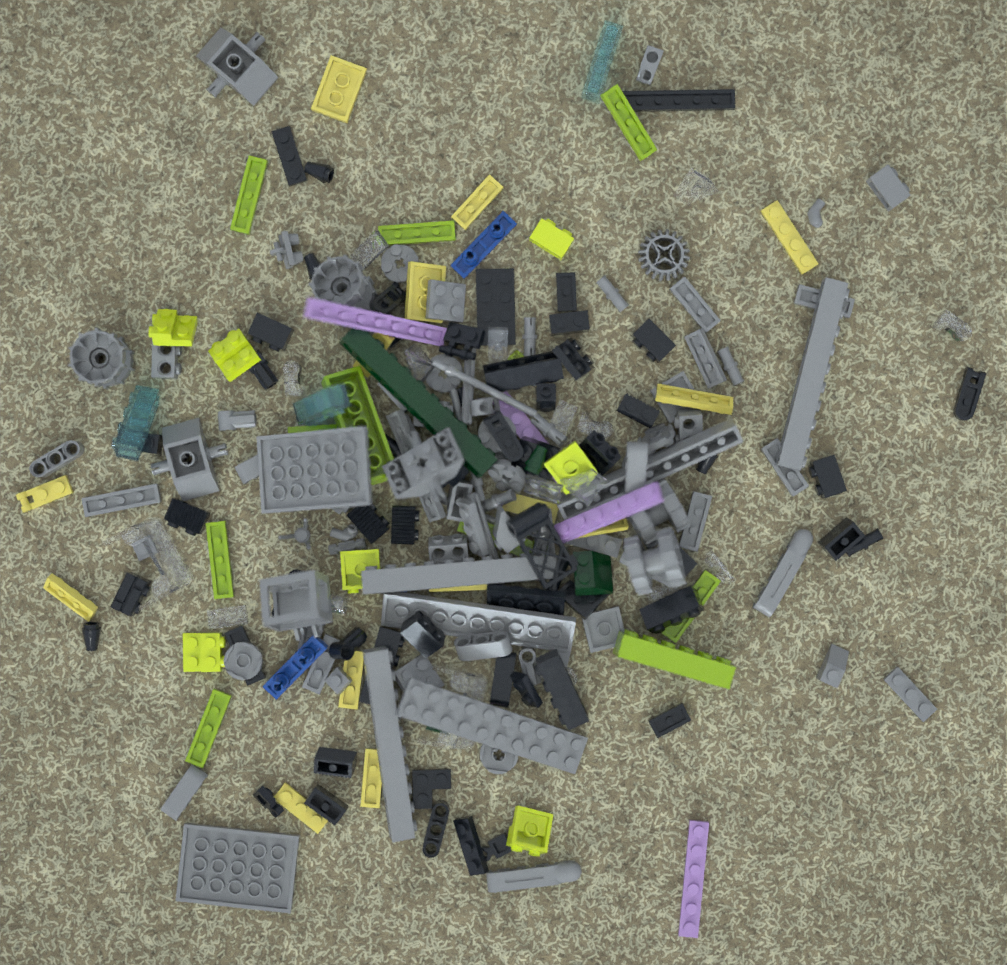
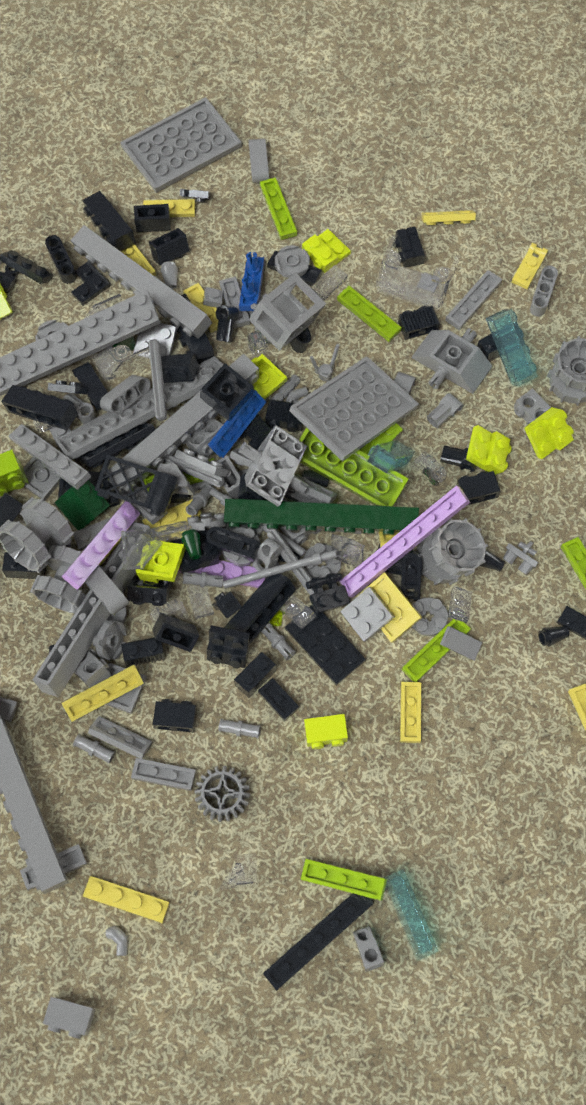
camera: 140 degrees right, 20 degrees down
(91, 635) = (412, 205): black cone -> none
(355, 736) = (169, 272): none -> light grey cone
(366, 832) = (108, 221): none -> black brick
(396, 220) = (461, 643): none -> light grey tile
(408, 563) = (226, 392): none -> black brick
(416, 539) = (236, 425): none -> blue plate
(450, 631) = (157, 380): none -> light grey axle
(483, 244) = (376, 683): blue plate -> none
(588, 635) = (49, 456): none -> light grey plate
(603, 402) = (175, 632): none -> black brick
(697, 516) = (29, 606): light grey plate -> none

